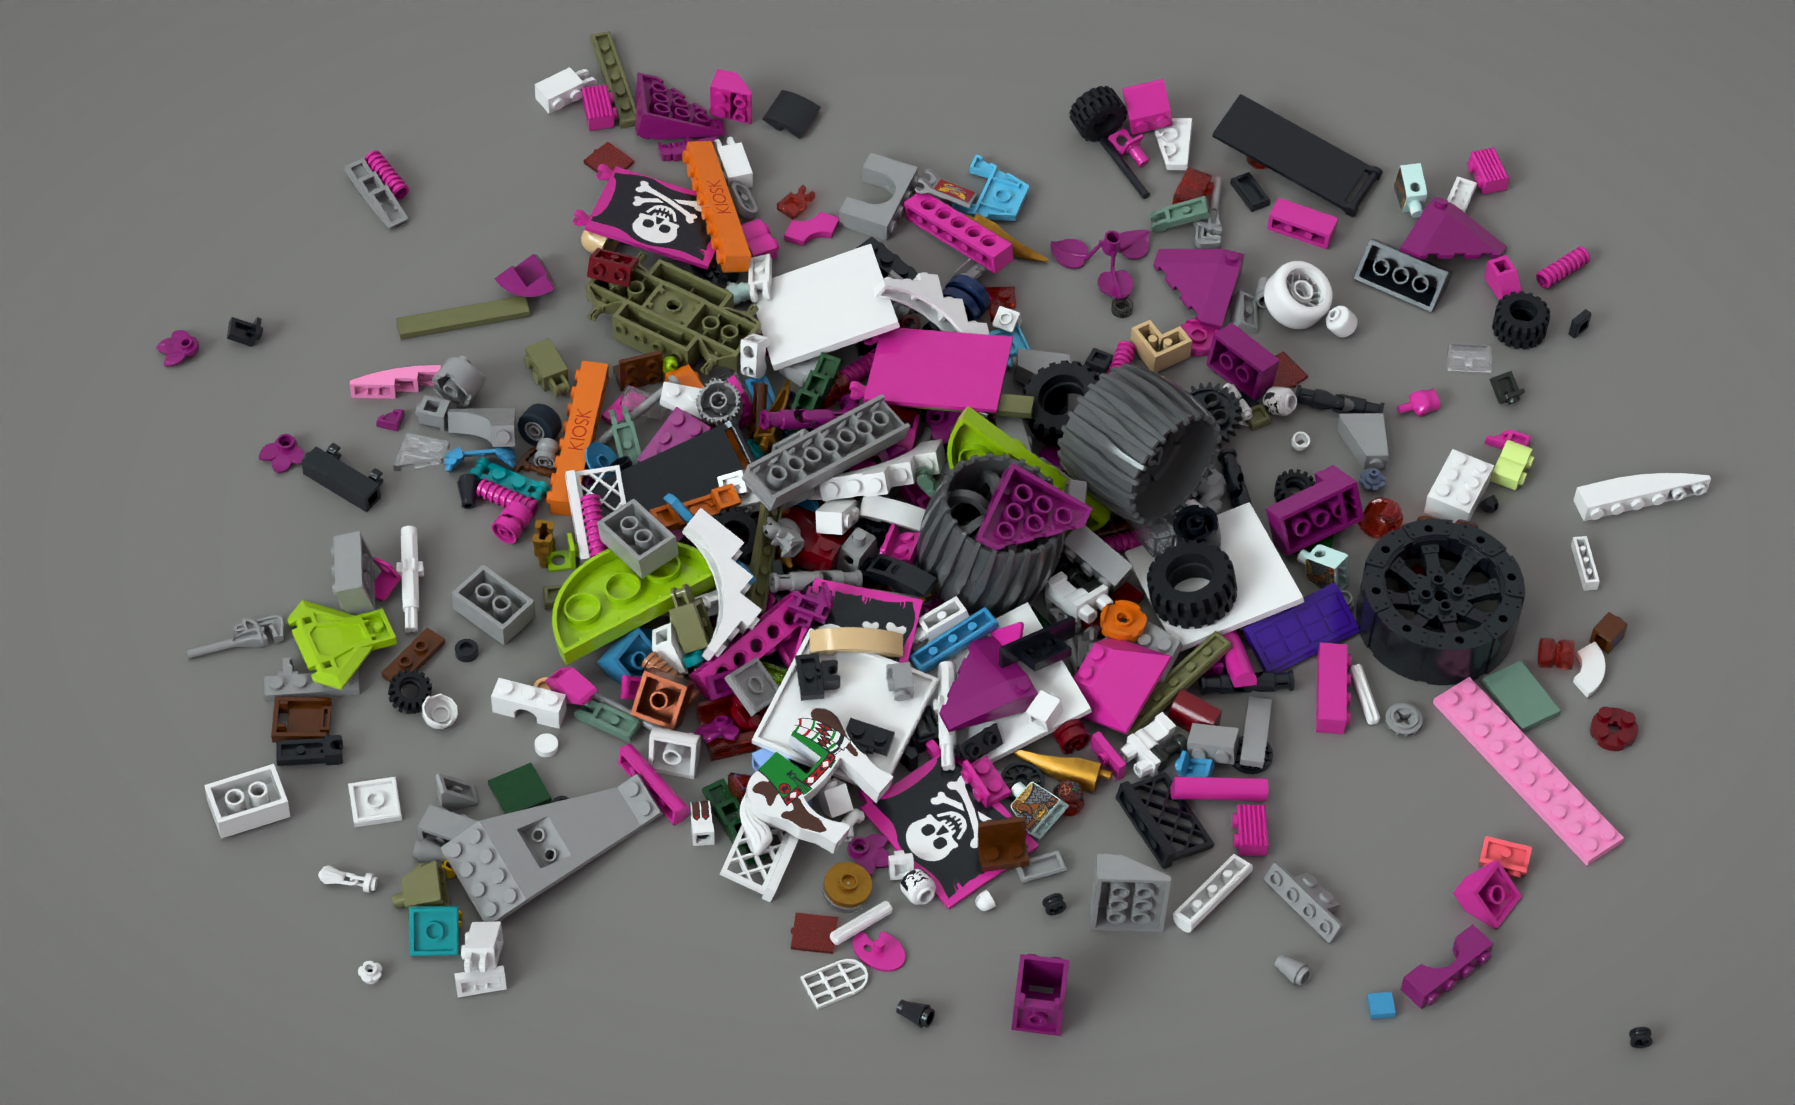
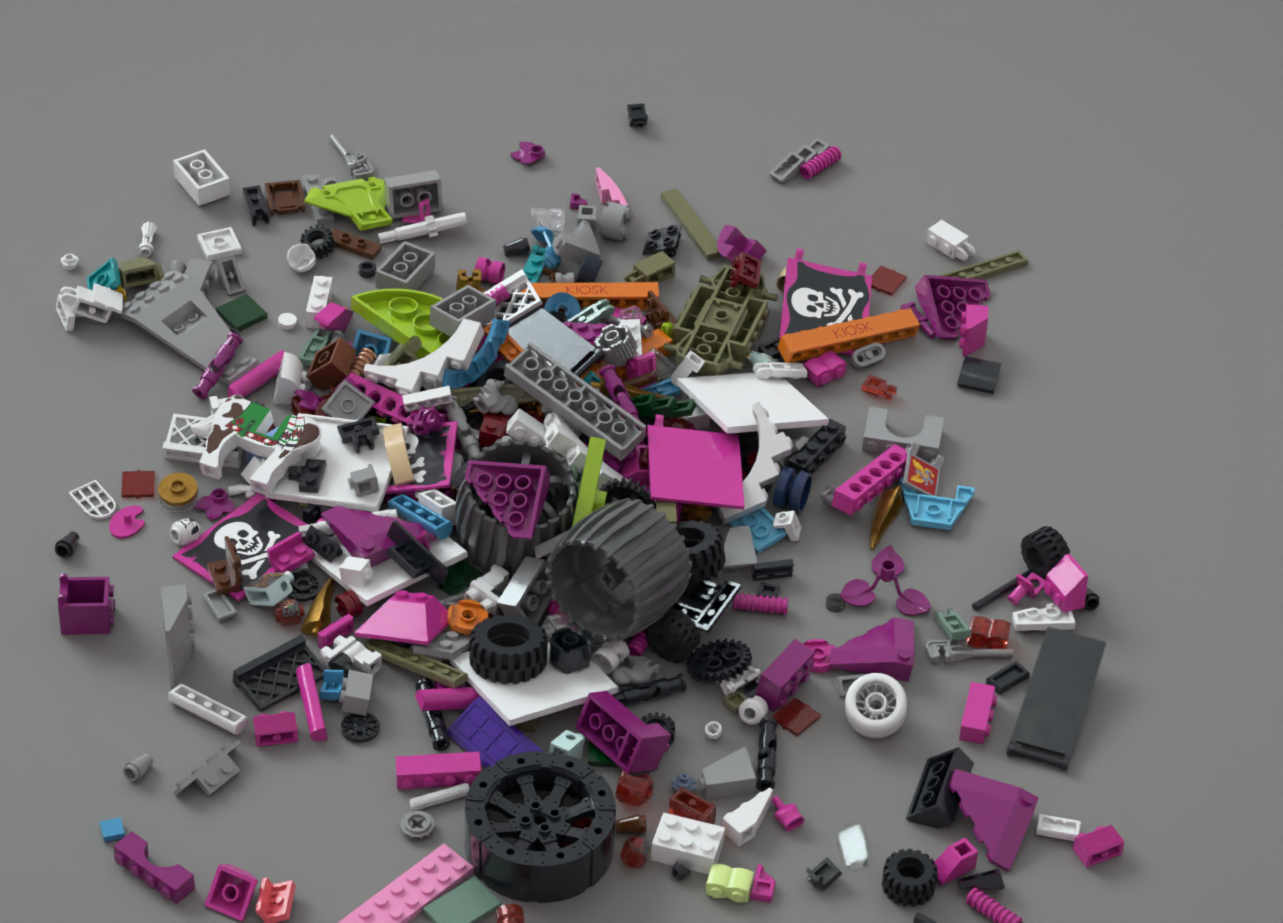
camera: 80 degrees right, 10 degrees down
(178, 347) = (613, 89): magenta plate -> none
(342, 479) = (509, 181): black brick -> none
(482, 924) = (107, 298): none -> white piece
(492, 347) = (663, 239): none -> black hinge
(502, 496) = (516, 262): dark pink piece -> none
(598, 107) = (937, 262): dark pink brick -> none
(620, 809) = (218, 365): none -> magenta piece
(734, 163) = (906, 345): white hinge -> none
(778, 597) = (427, 398): none -> white piece
(803, 231) = (851, 398): dark pink tile -> none
(861, 922) = (148, 505): white axle -> none
(900, 864) = (205, 518): white tile -> none
(985, 901) = (180, 574): white hinge -> none
(1000, 297) = (816, 519): clear red hinge -> none
(1071, 342) = (773, 570): none -> black tile
(1158, 349) = (788, 621): tan brick -> none
(1191, 709) = (389, 683): dark red brick -> none
(1255, 732) = (380, 721): light grey slope -> none
(1341, 321) = (862, 745): white head -> none
(1411, 189) = (1046, 782): light aqua torso -> none
(1417, 475) = (692, 806): none -> clear red brick
(1428, 434) = (745, 821): none -> white slope
(1526, 264) = (987, 880): none -> black slope

